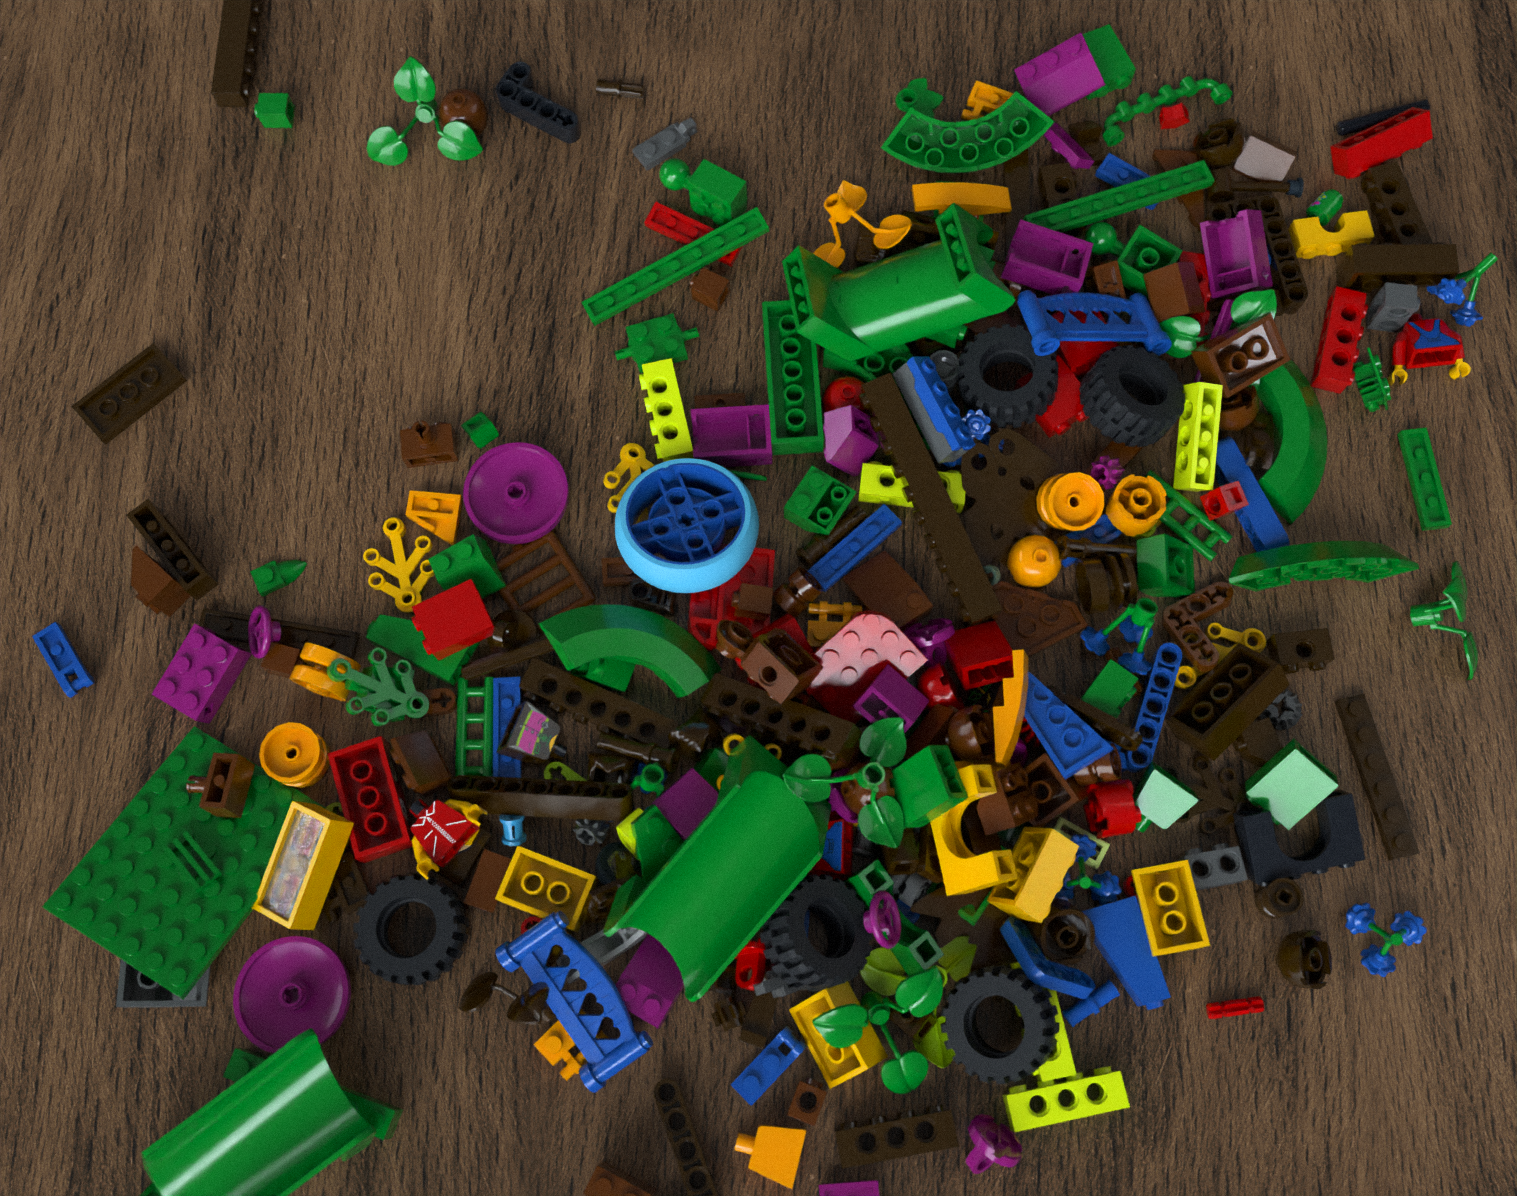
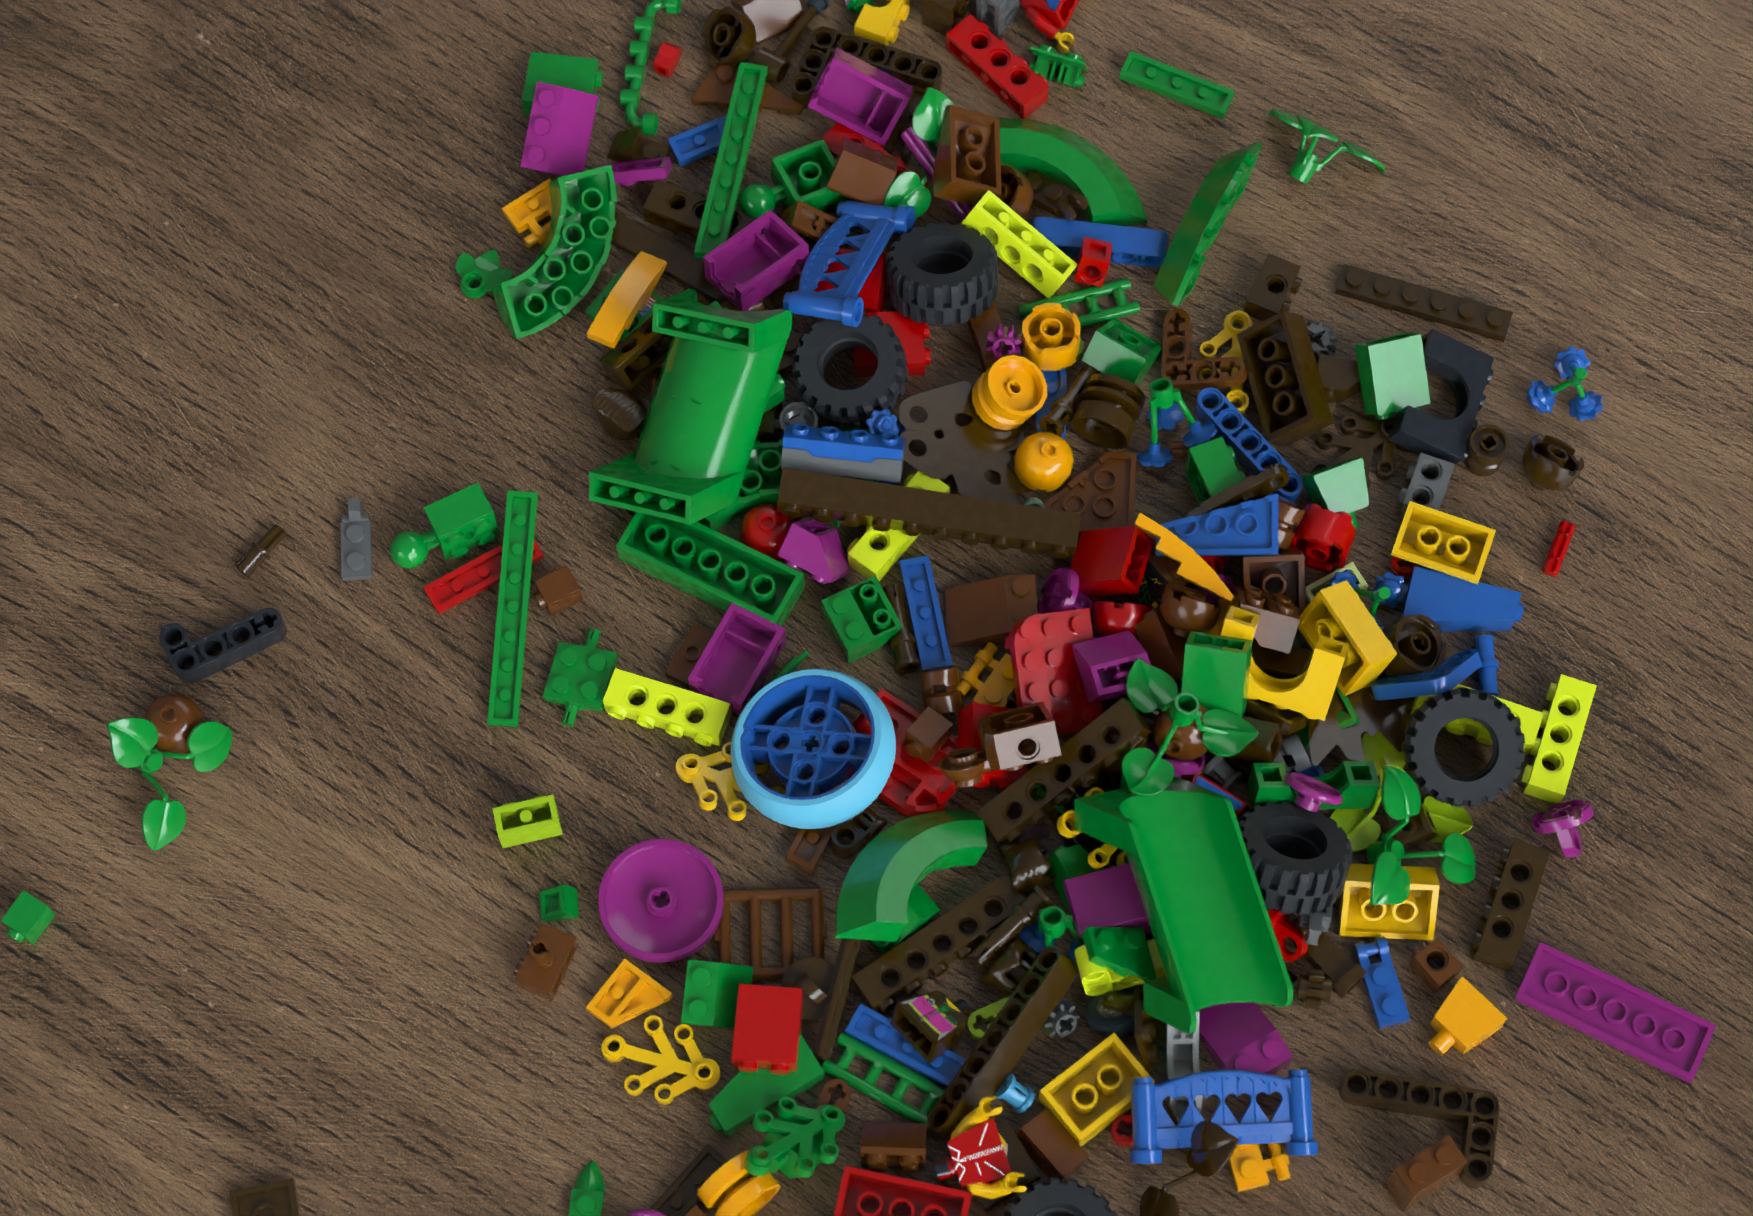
camera: 60 degrees left, 5 degrees down
(523, 370) = (527, 821): none -> lime brick
(846, 203) = (554, 408): light orange plant -> none

